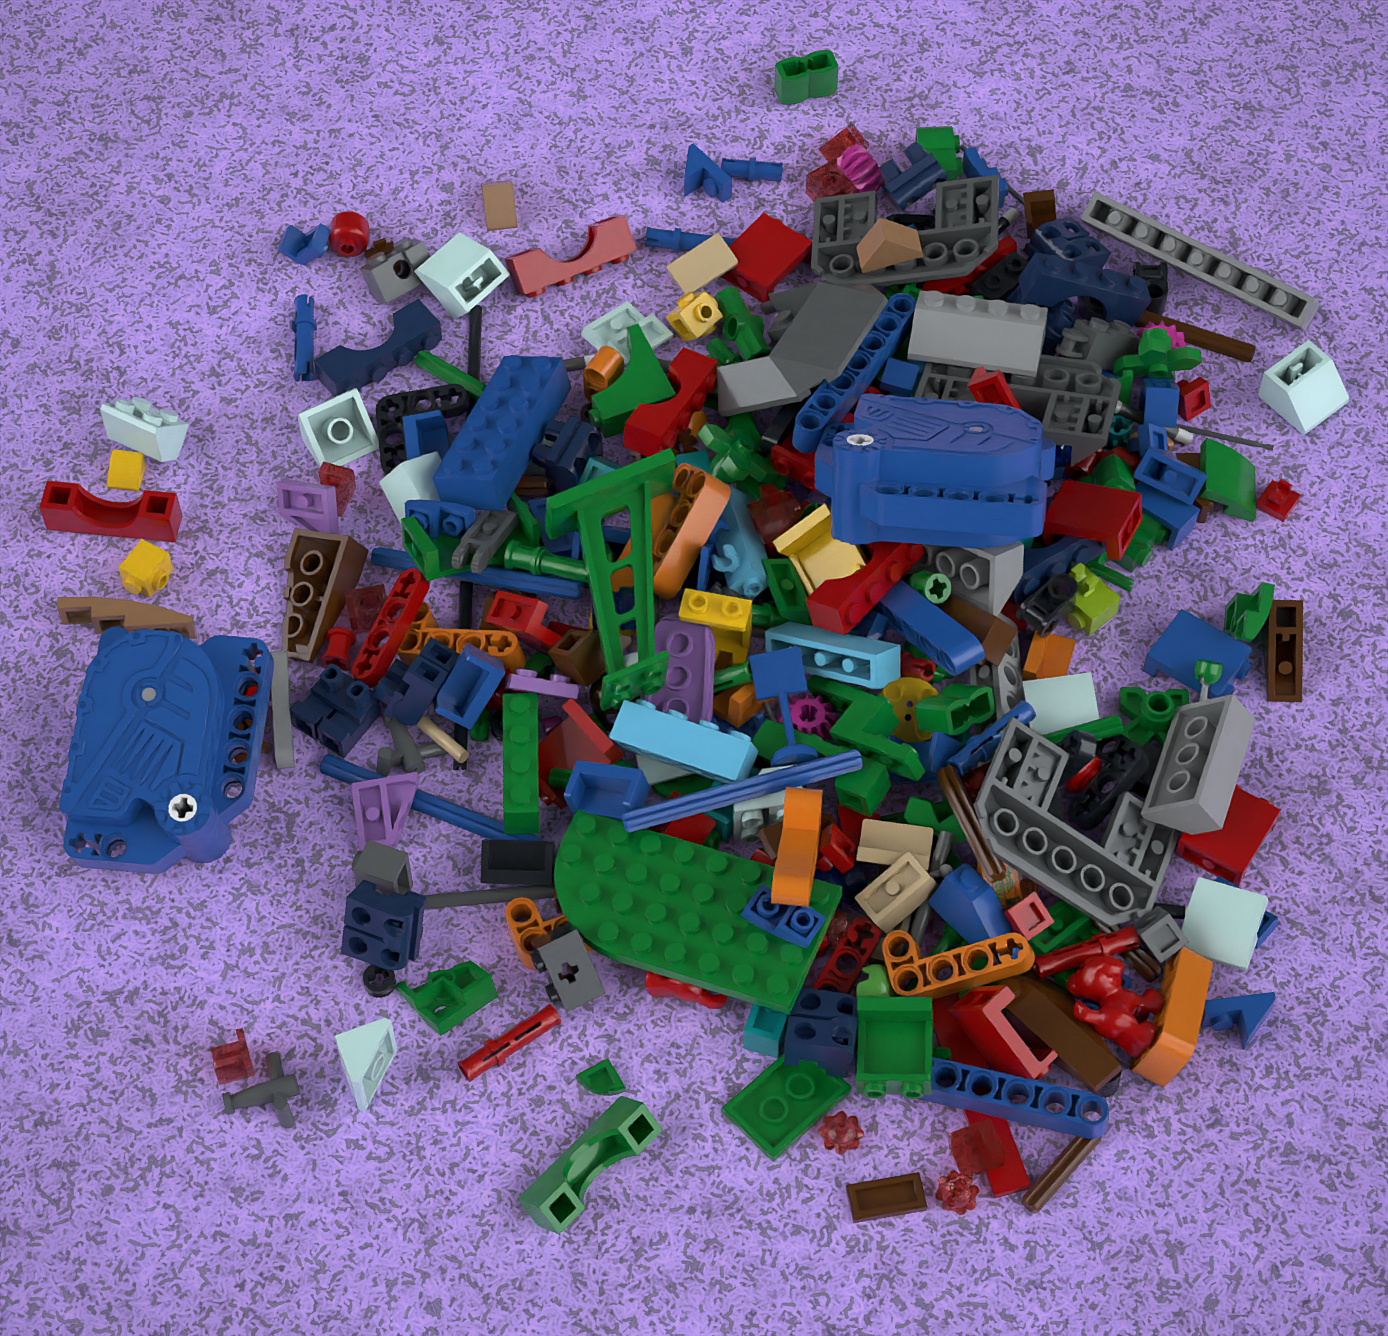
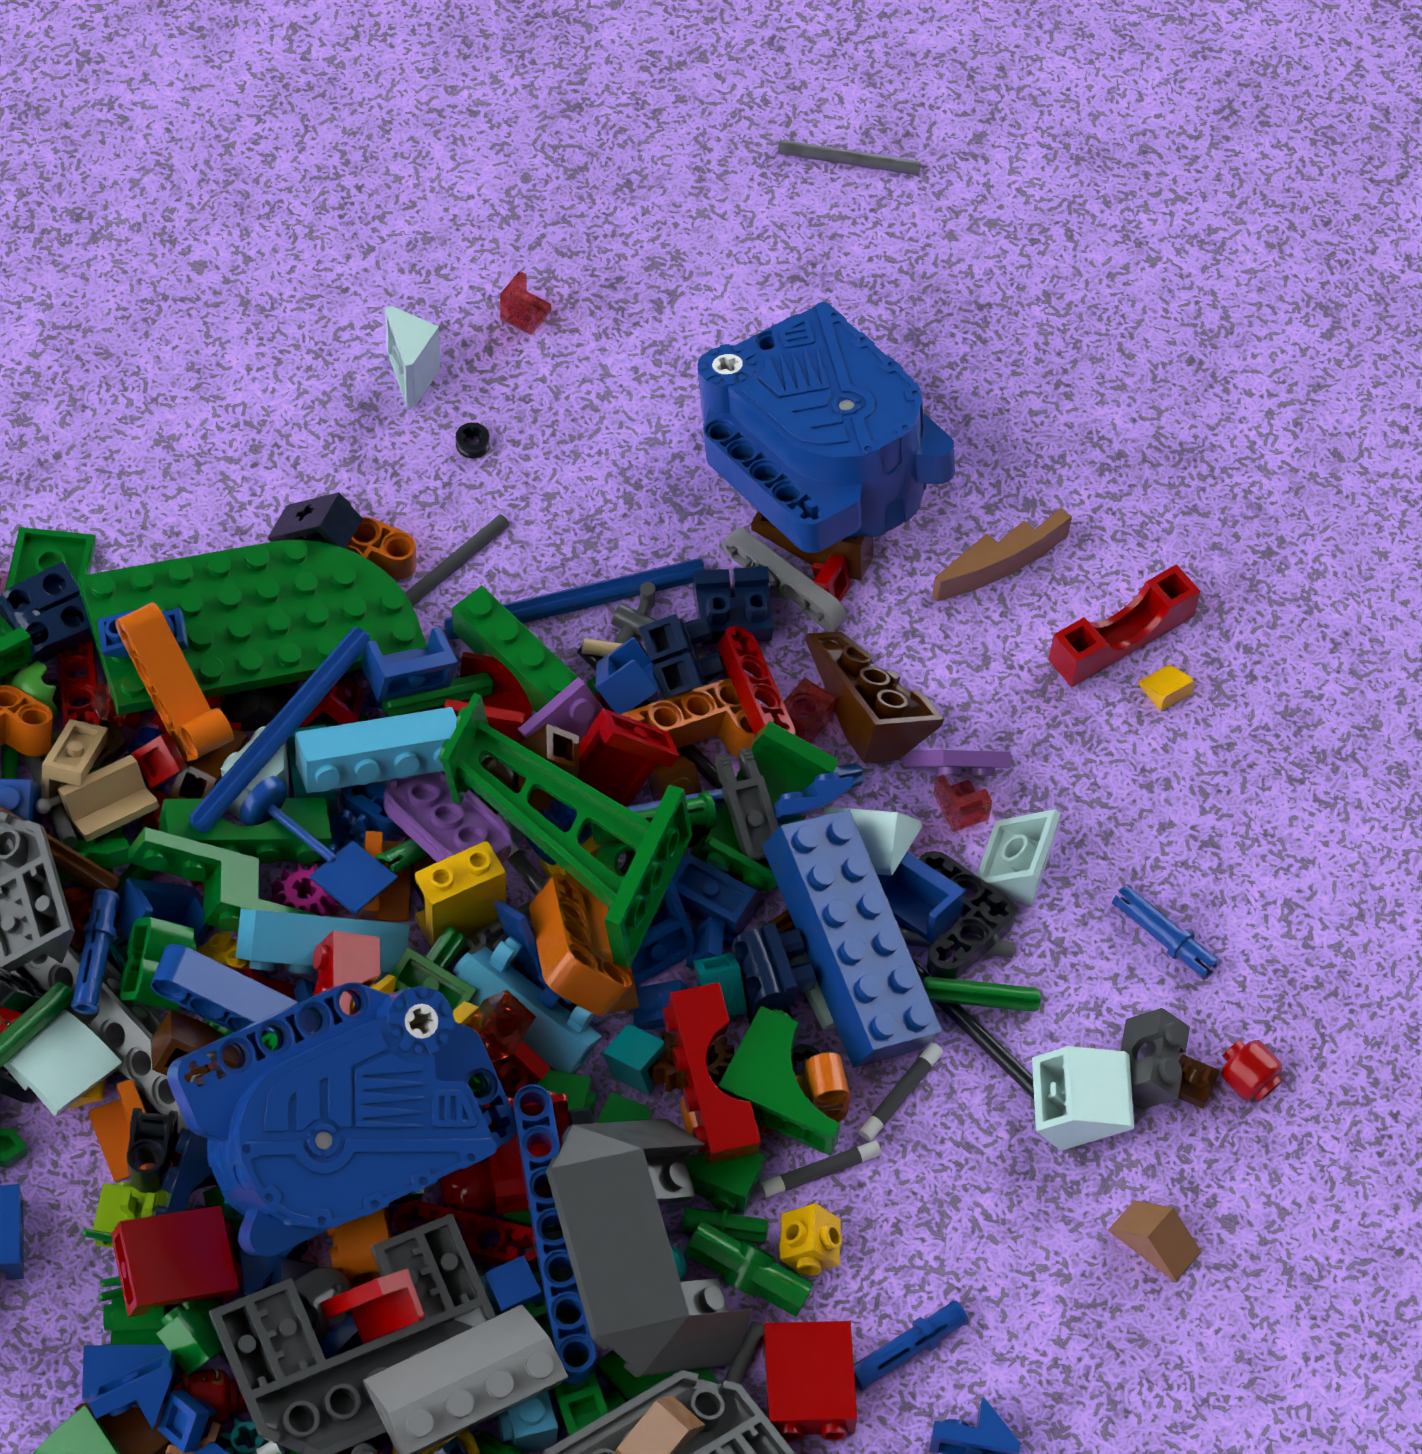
camera: 135 degrees right, 0 degrees up
(144, 428) = (1185, 706): light aqua slope -> none
(145, 569) = (1037, 607): yellow brick -> none
(274, 1090) = (469, 311): dark grey piece -> none
(304, 247) = (1280, 1027): blue bracket -> none
(339, 648) = (793, 662): red bush -> none
(349, 369) = (1071, 1008): dark blue arch -> none
(383, 807) = (606, 555): medium lavender wing -> none
(383, 927) = (492, 451): dark blue hips -> none
(384, 867) = (541, 491): dark grey brick -> none
(460, 989) = (399, 481): green slope -> none
(473, 1064) = (321, 452): red pin -> none
(517, 862) = (443, 586): black panel -> none
(560, 1191) = (168, 378): green arch -> none
(602, 1079) = (216, 495): green tile -> none
(605, 242) = (1020, 1171): arch -> none
(612, 329) = (863, 1176): light aqua slope -> none
(702, 264) = (860, 1303): tan panel -> none
(735, 456) = (613, 1059): green plant -> none

